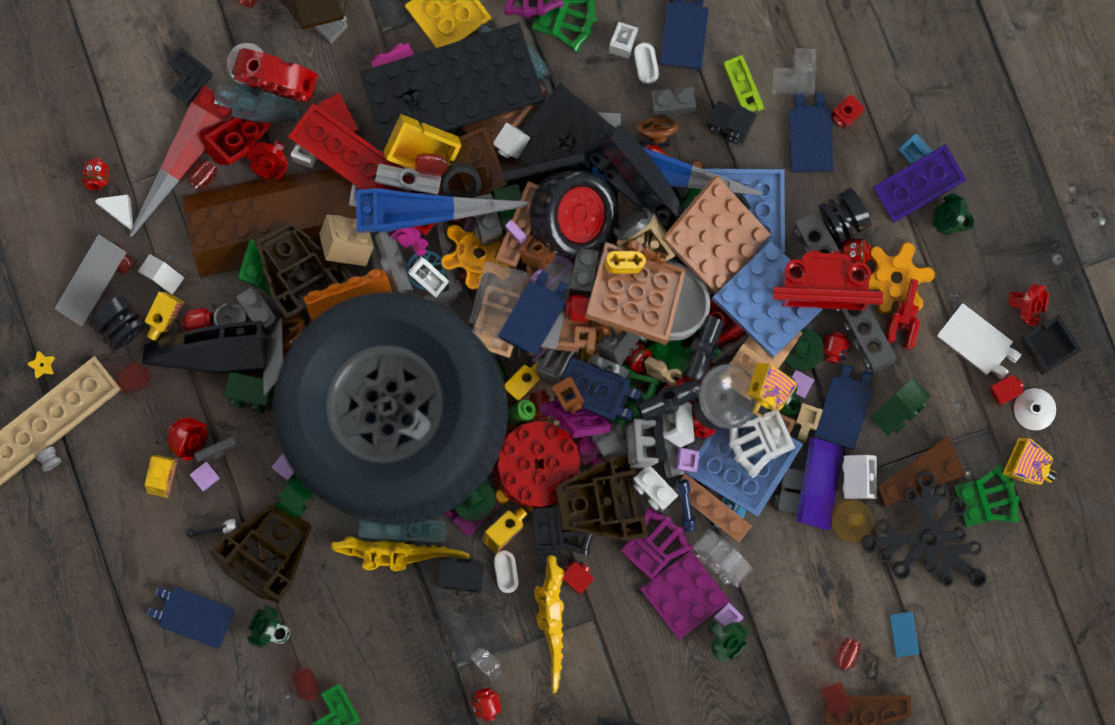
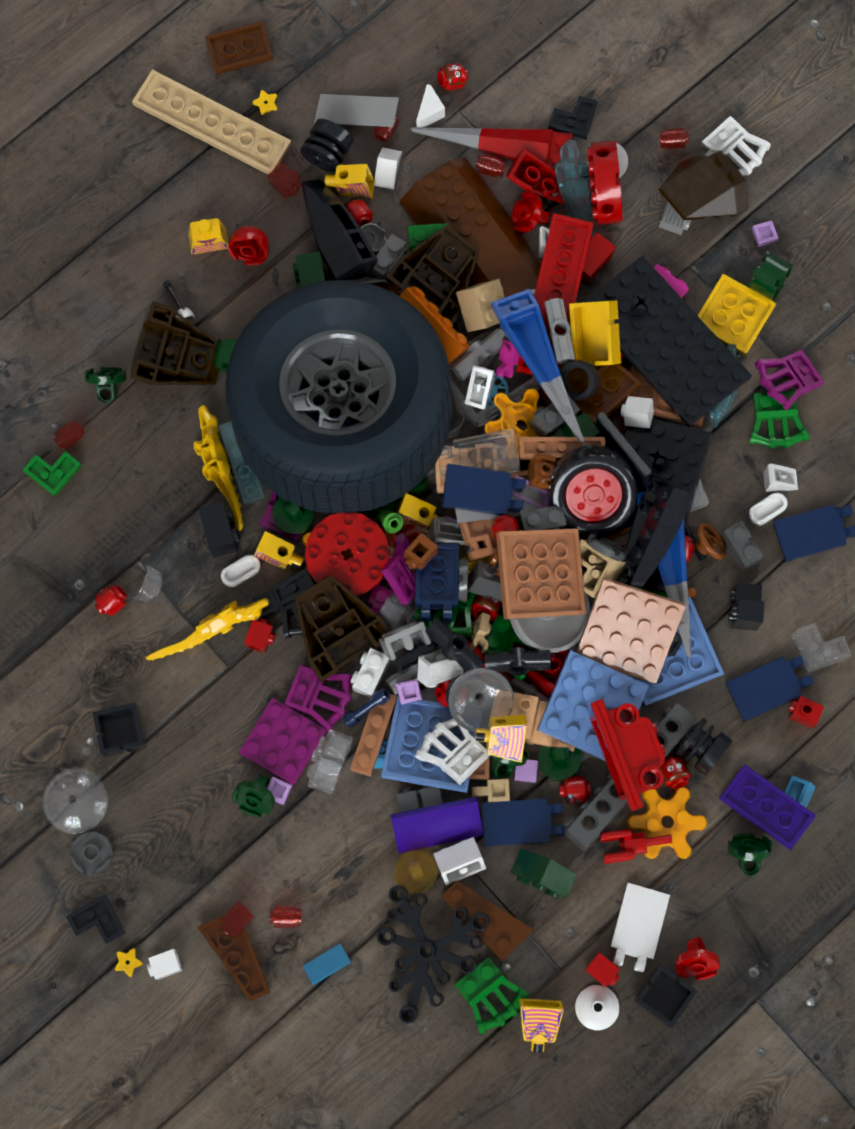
camera: 70 degrees right, 5 degrees down
(48, 459) = (184, 139): light grey wheel -> none
(193, 616) = (93, 315): dark blue tile -> none
(204, 476) = (222, 276): lavender tile -> none
(217, 450) = (248, 275): dark grey plate -> none
(430, 164) = (582, 343): clear red brick -> none
(515, 232) = (551, 442): lavender tile -> none
(624, 261) = (565, 551): yellow beam -> none
(658, 257) = (583, 556): dark orange piece -> none
(743, 83) = (788, 604): lime plate -> none

